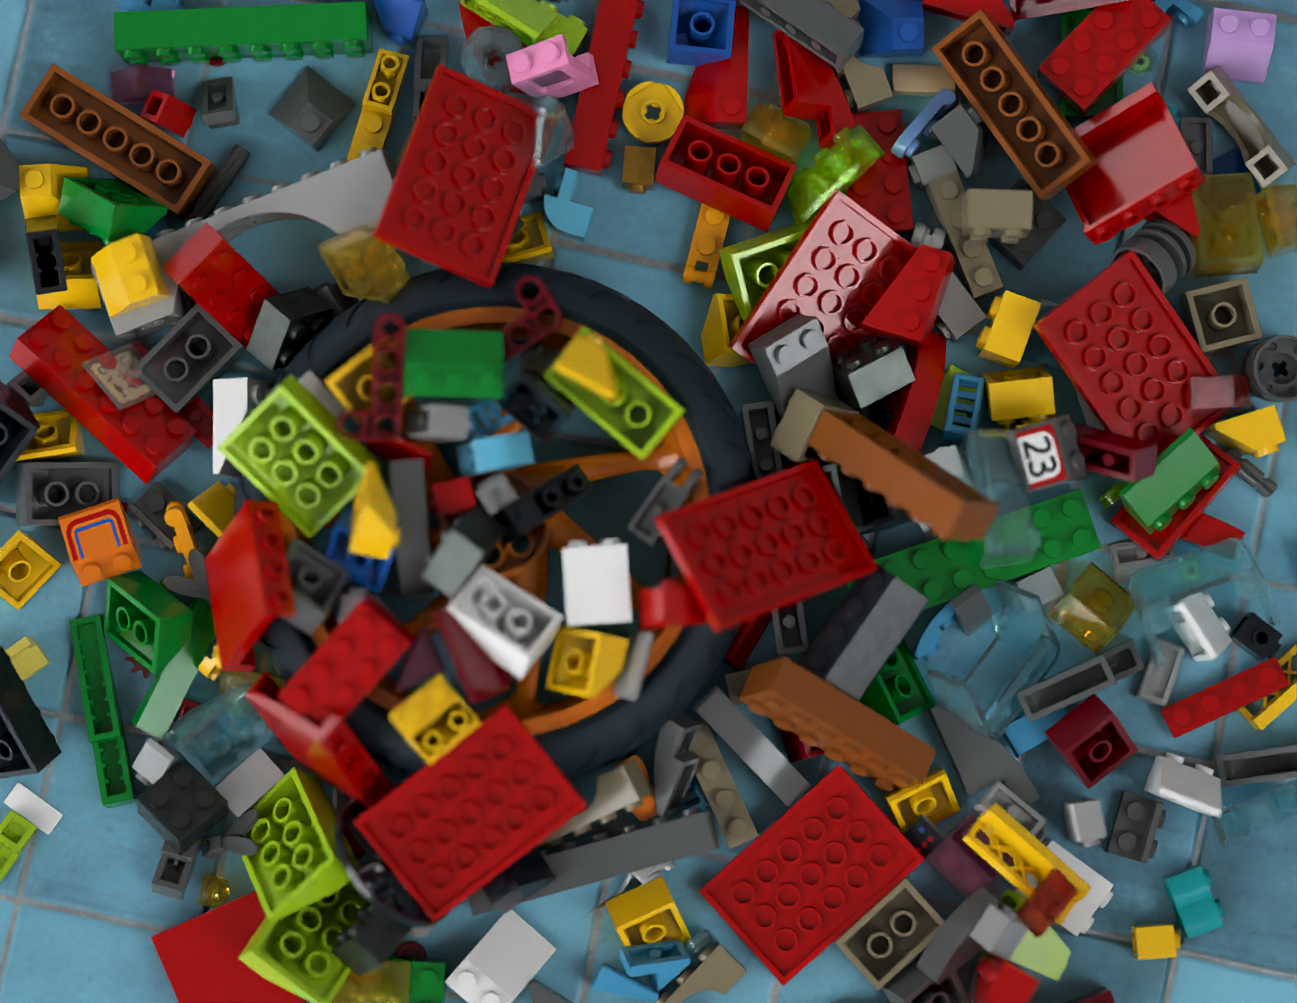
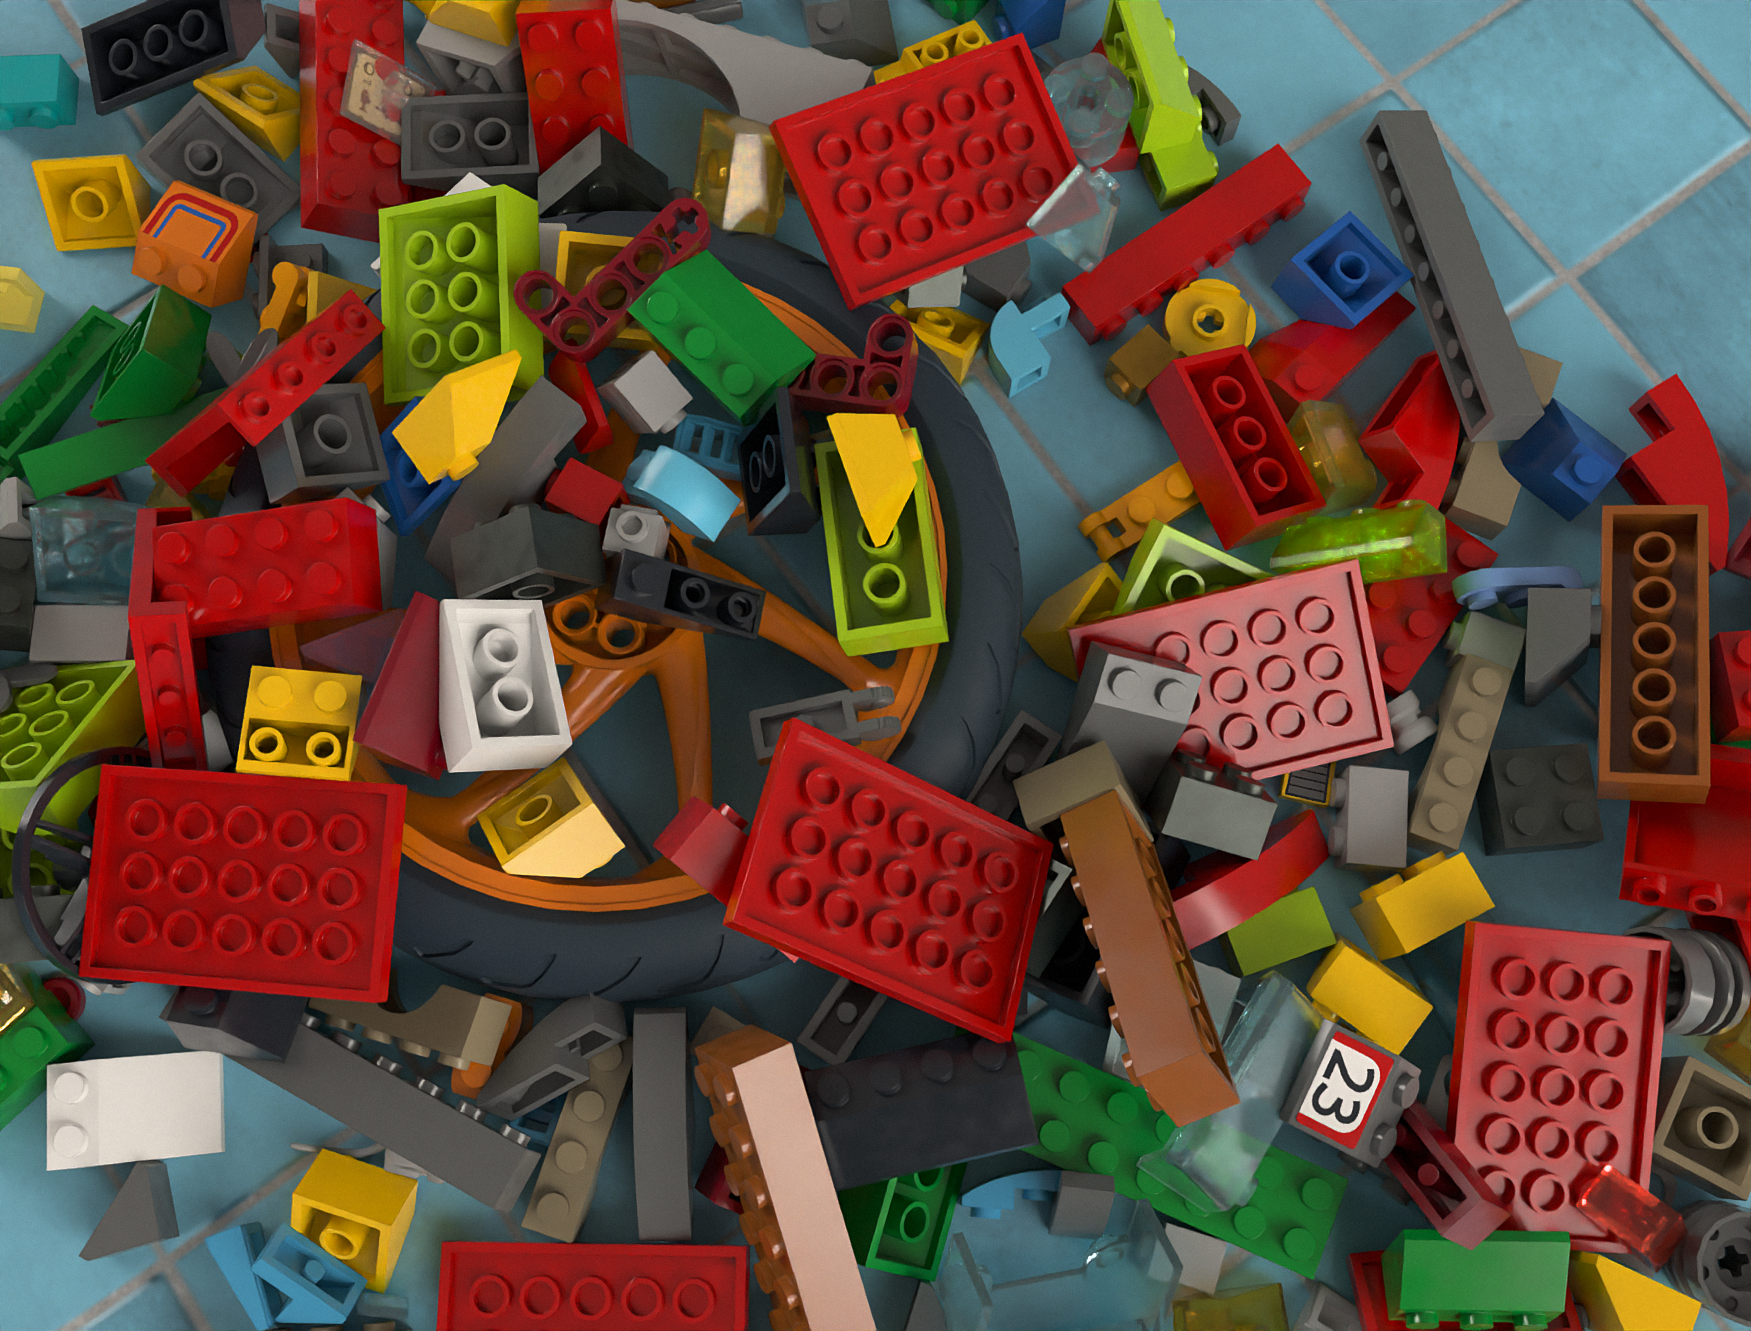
camera: 40 degrees right, 10 degrees down
(552, 69) = (1144, 202): bright pink window -> none
(596, 583) = (652, 746): white brick -> none
(637, 656) = (602, 886): light grey slope -> none
(745, 642) = (779, 988): red slope -> none
(913, 299) = (1336, 765): red wedge -> none
(920, 80) = (1547, 542): tan slope -> none
(956, 433) = (1258, 961): dark azure slope -> none
(997, 215) = (1532, 751): dark tan brick -> none
(1111, 495) = (1379, 1224): clear neon green tile -> none

